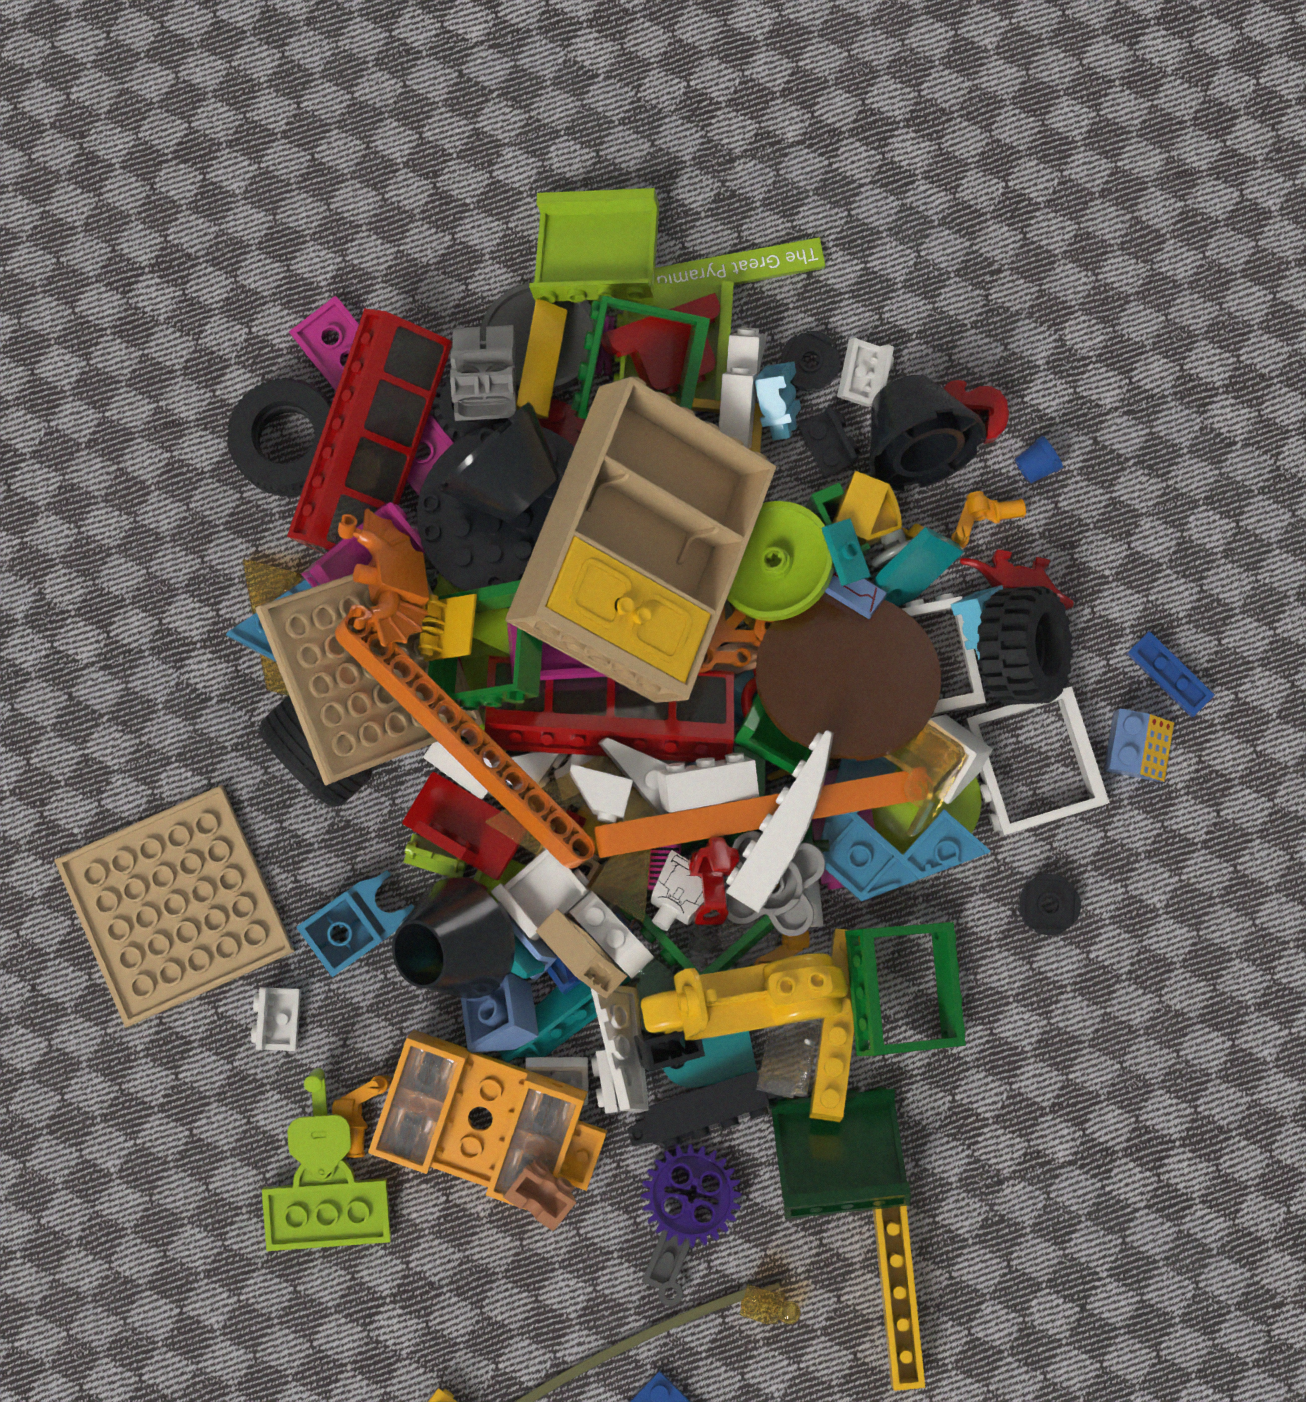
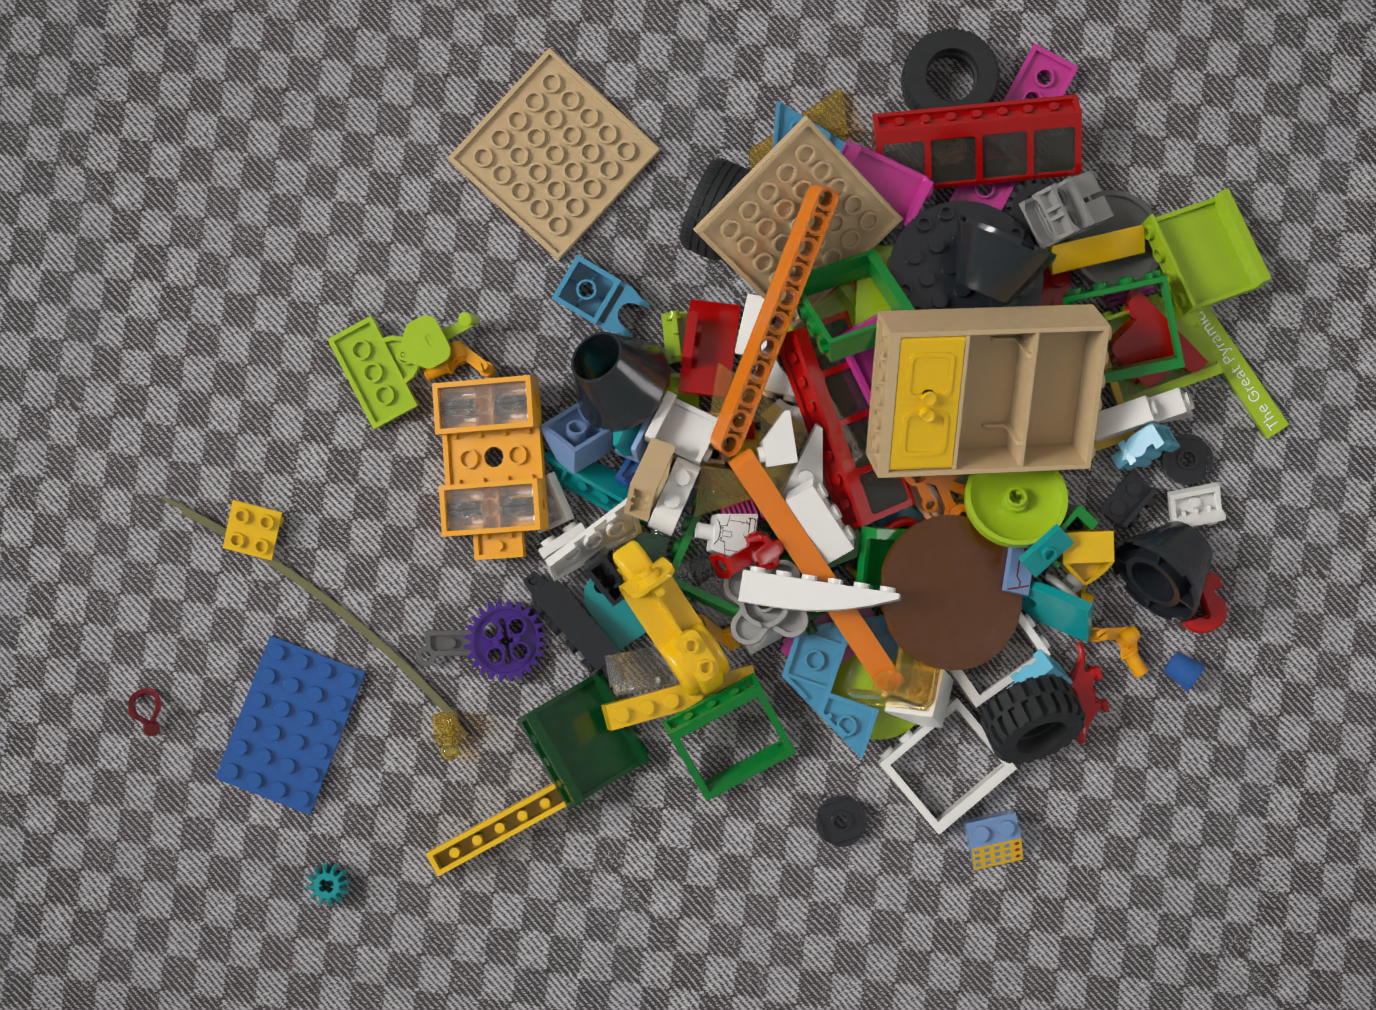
camera: 65 degrees right, 5 degrees up
(277, 1019) = (502, 270): white bracket -> none
(393, 577) = (875, 210): orange torso -> none
(448, 627) = (854, 269): yellow hinge -> none
(542, 1194) = (457, 528): nougat cylinder -> none
(1170, 674) = (1059, 841): blue plate -> none

